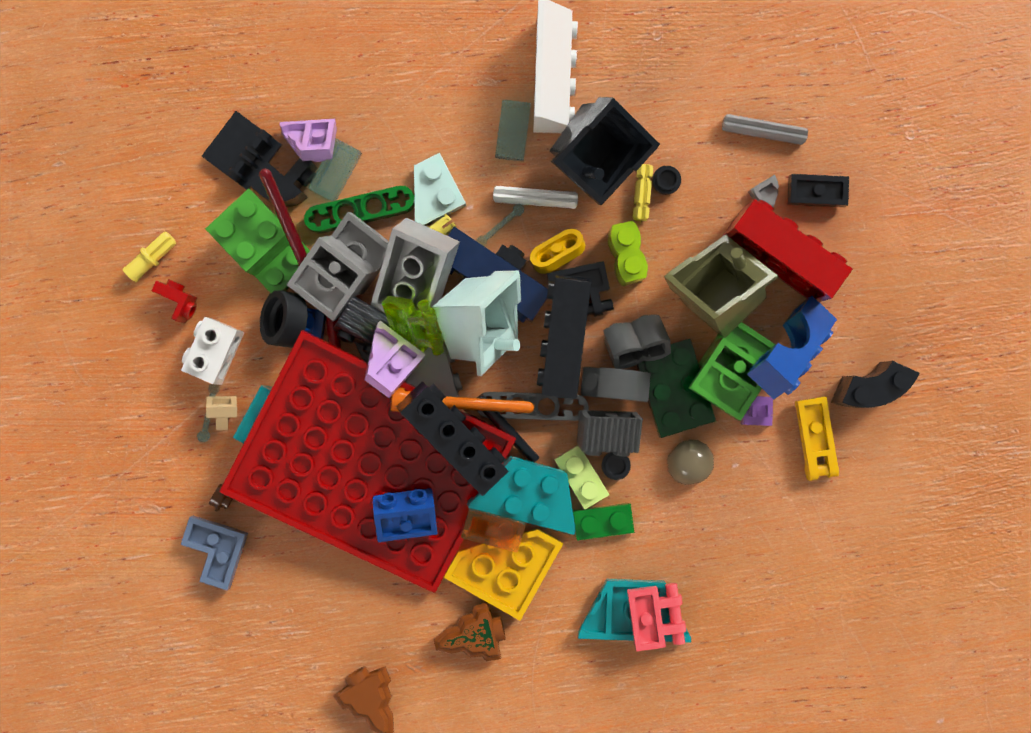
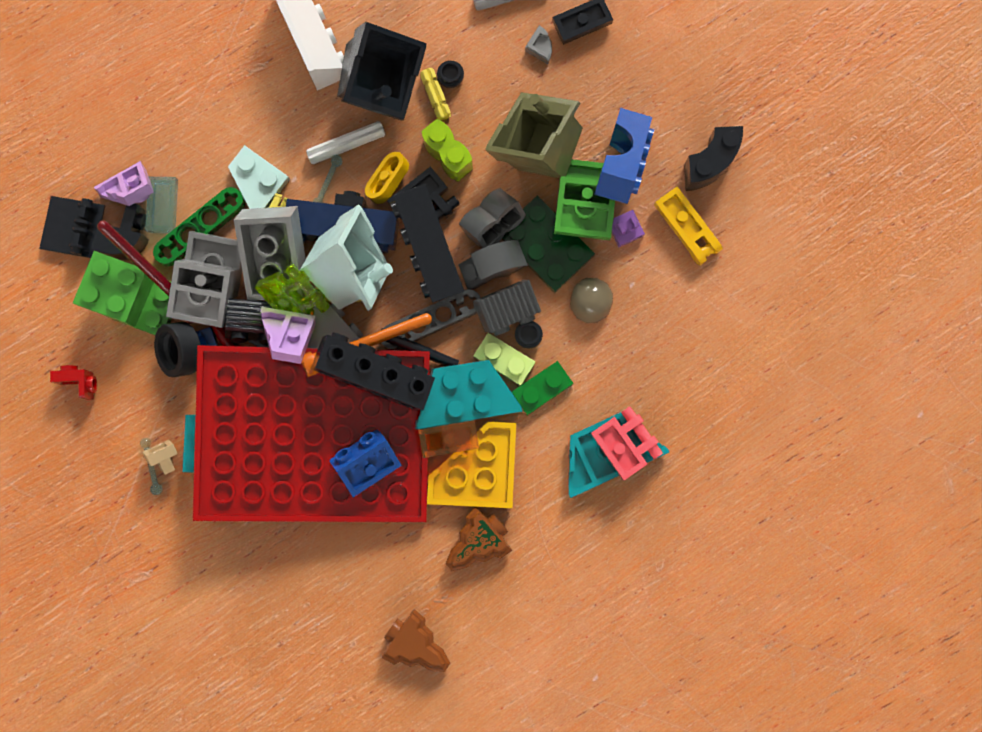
camera: 20 degrees left, 5 degrees down
(149, 256) = (34, 356): light yellow axle -> none
(211, 350) = (128, 409): white brick -> none
(220, 500) = (198, 533): reddish brown plate -> none
(223, 549) = (220, 575): sand blue plate -> none
(513, 130) = (298, 97): clear light blue tile -> none
(788, 252) = (591, 80): red brick -> none

